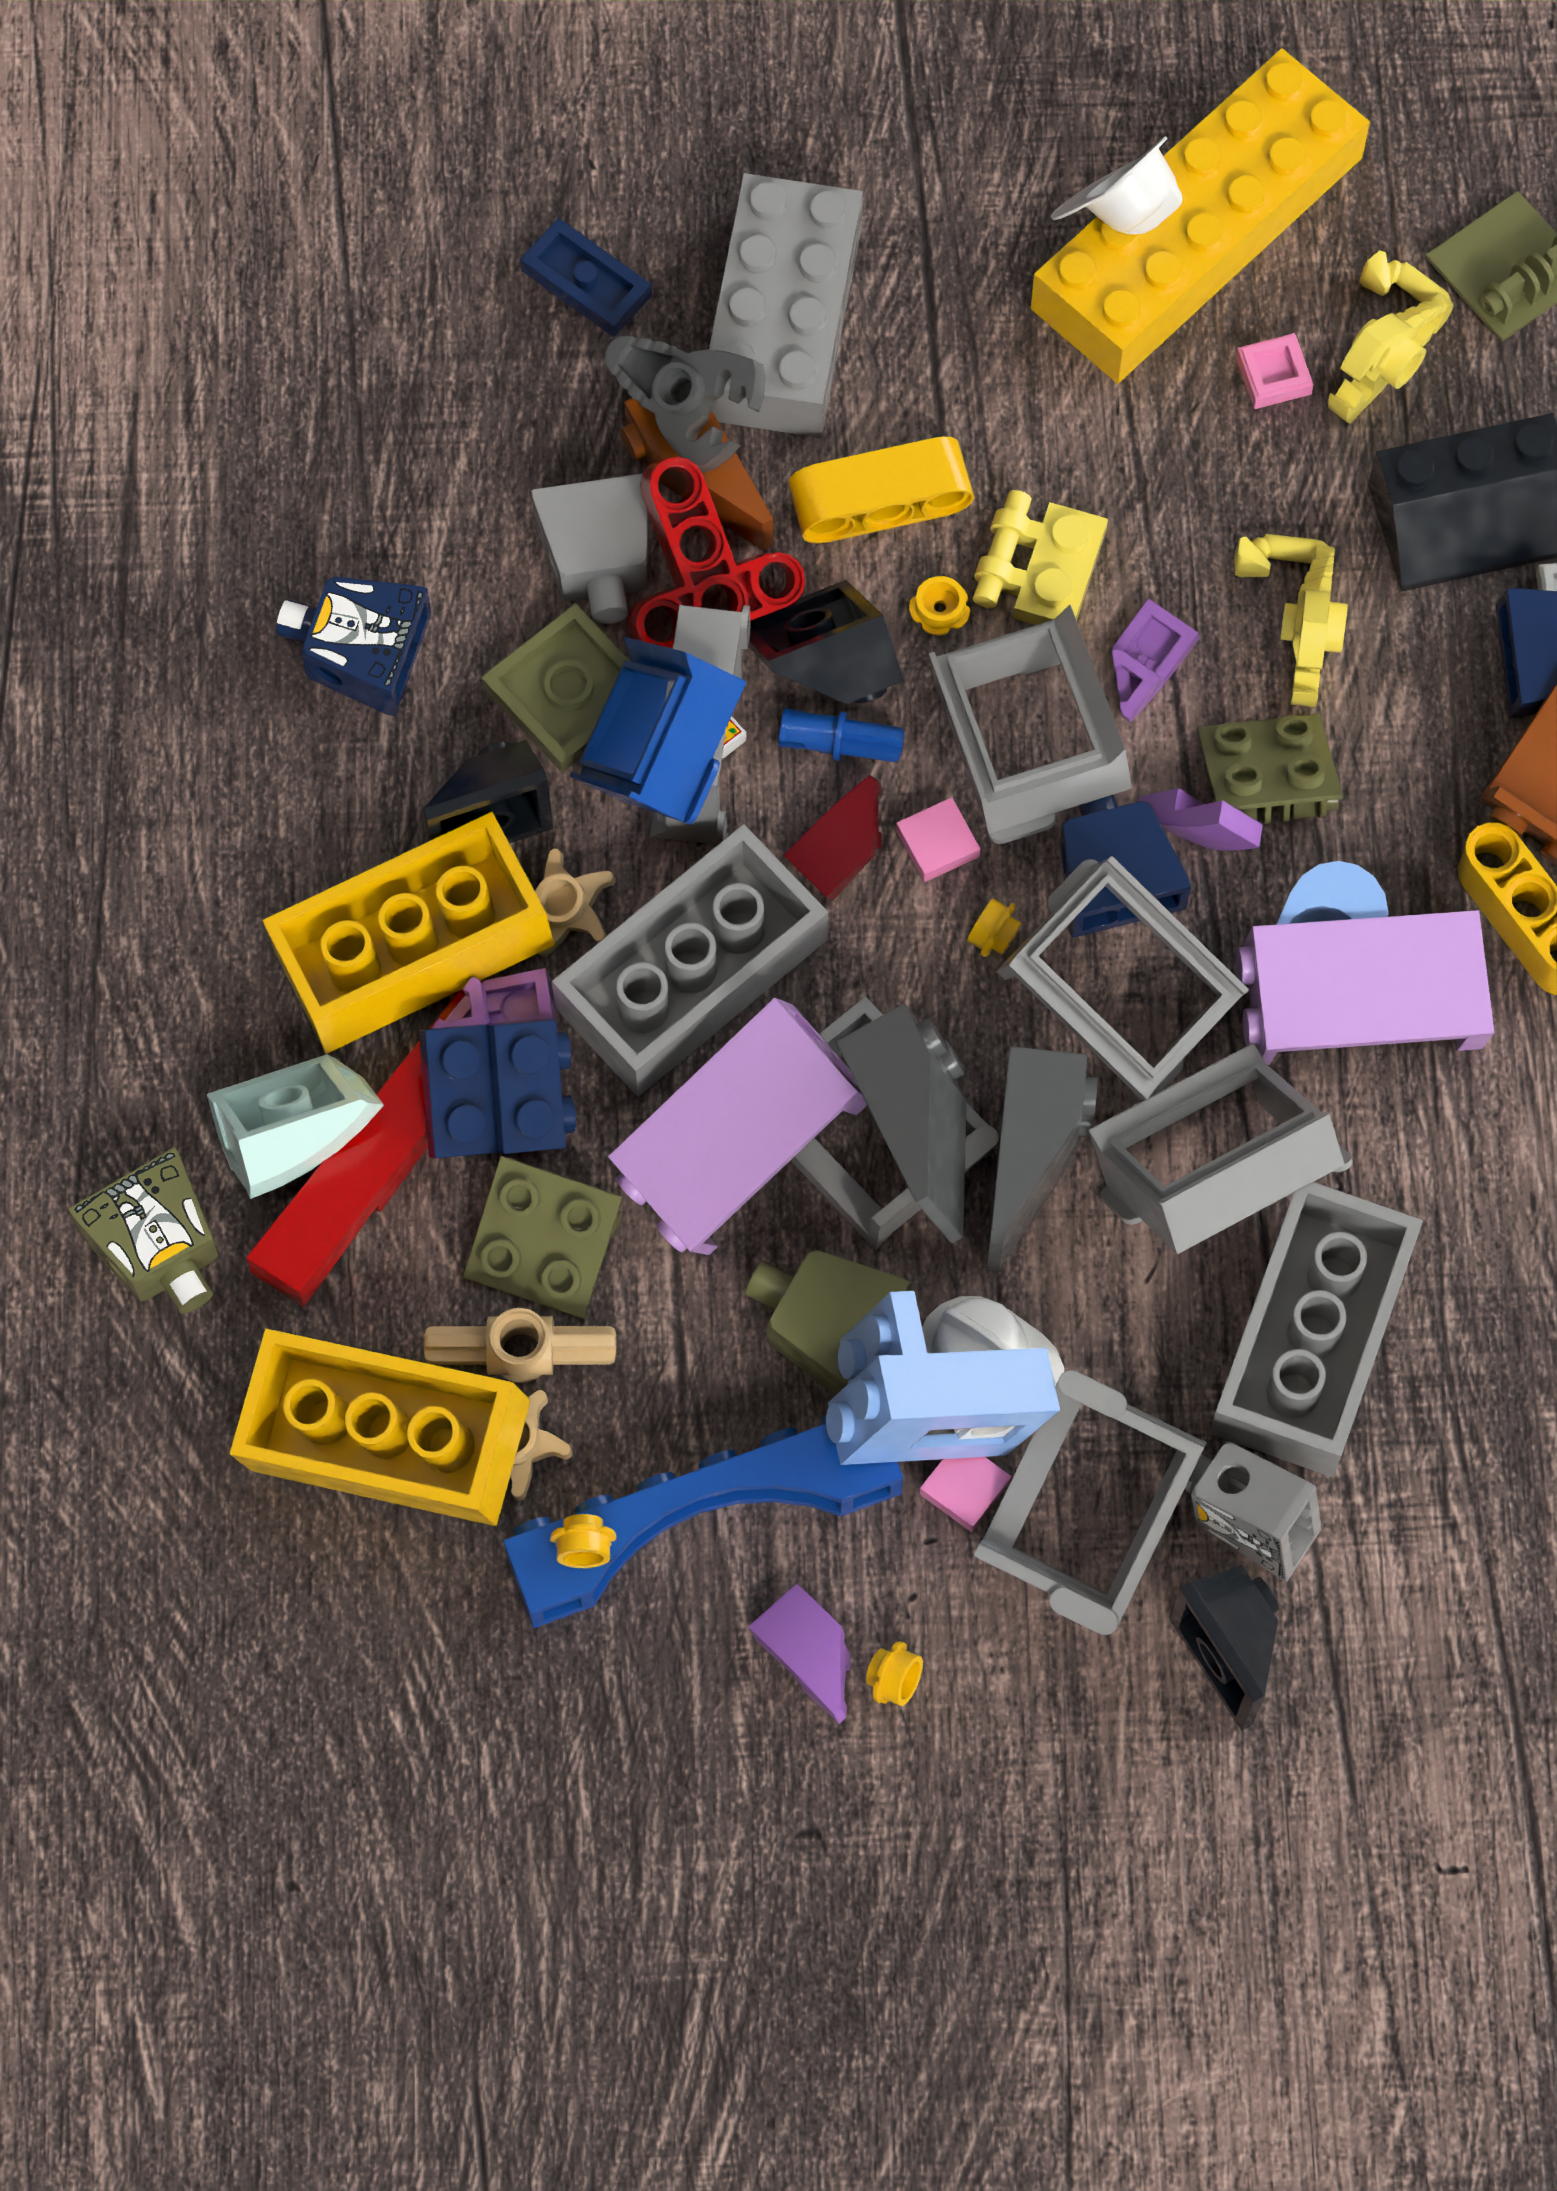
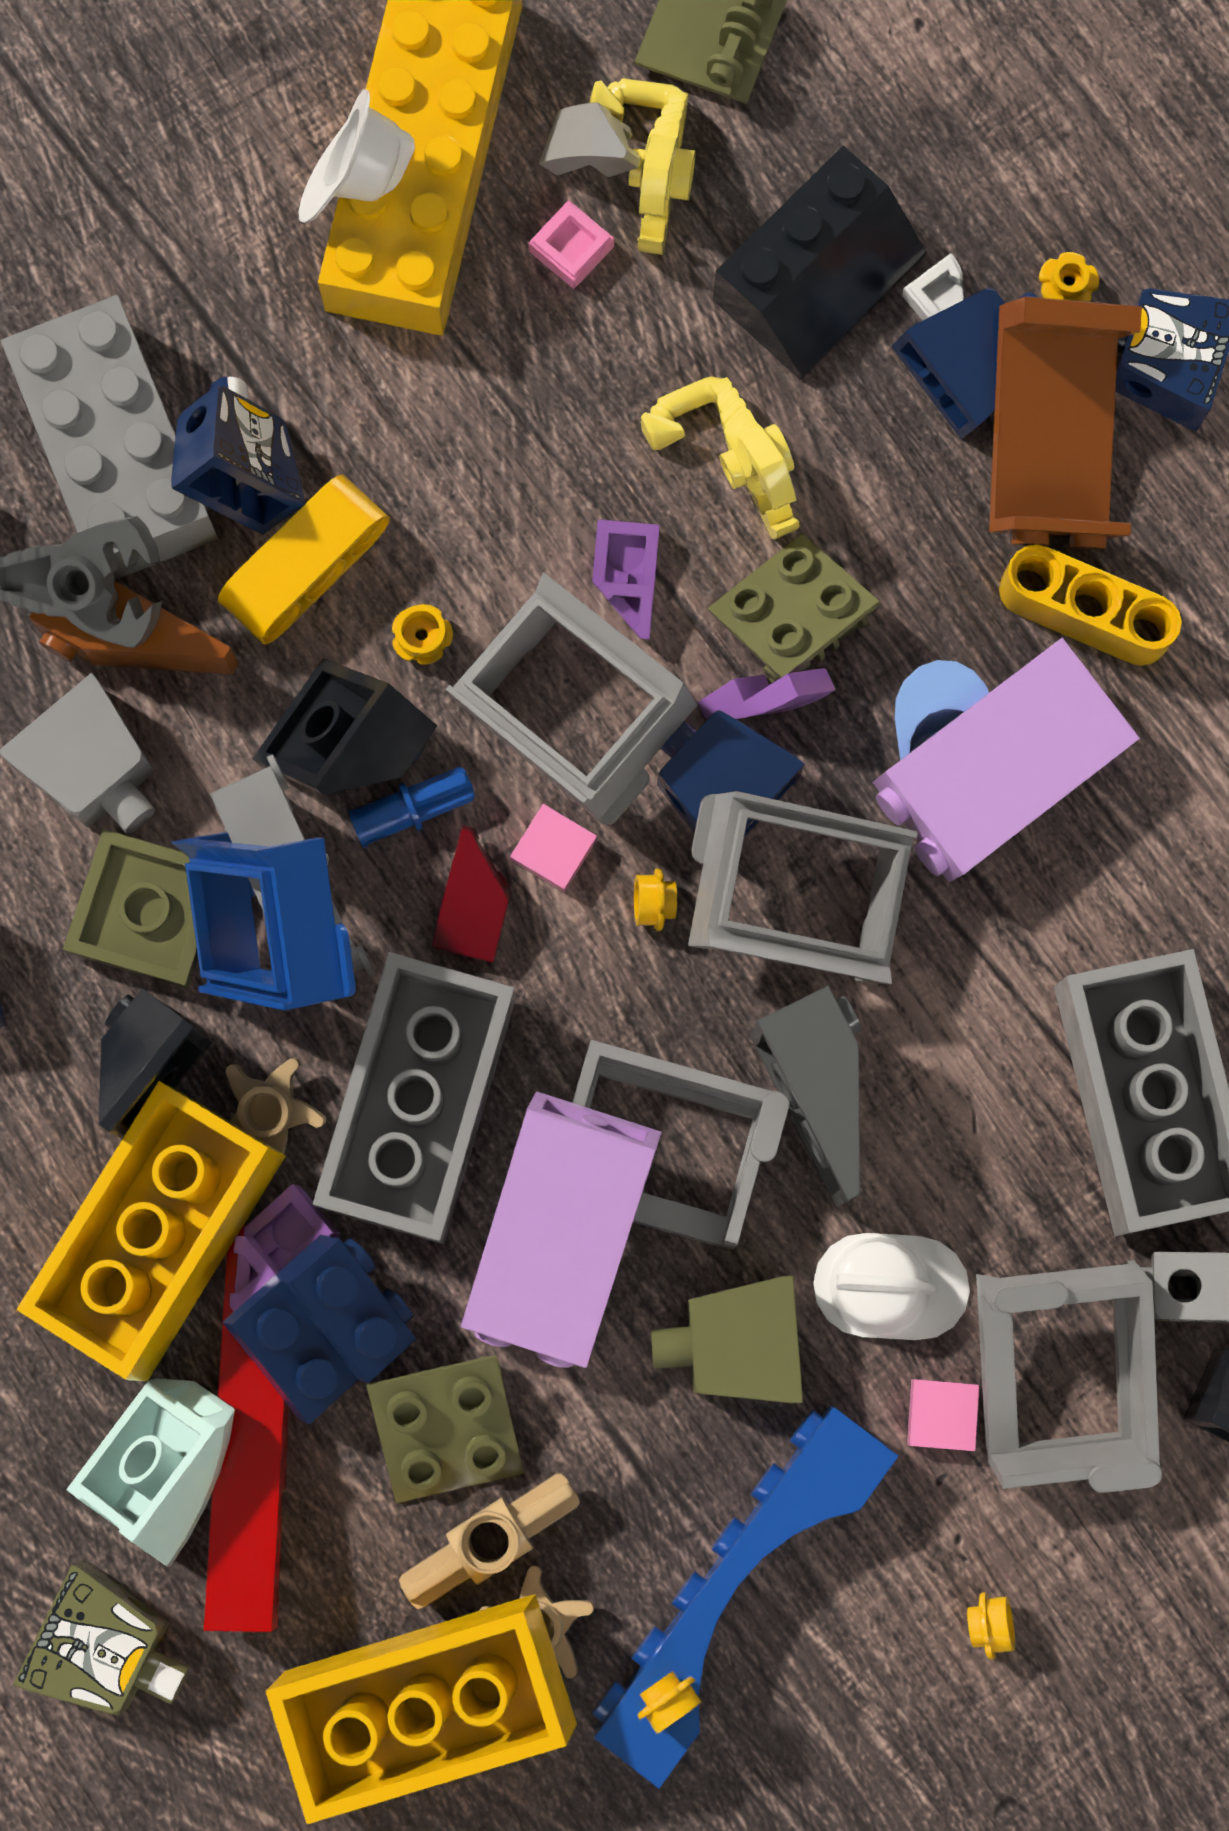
camera: 35 degrees left, 10 degrees up
(717, 564) = (204, 729): red beam -> none
(808, 1646) = (904, 1649): medium lavender slope -> none
(876, 375) = (236, 458): none -> dark blue torso
(918, 1106) = (713, 1131): dark grey slope -> none
(932, 1404) = (873, 1405): light blue brick -> none
(1059, 566) = (500, 535): light yellow plate -> none
(1232, 1184) = (1025, 1019): light grey piece -> none
(1343, 290) = (586, 137): none -> light grey slope

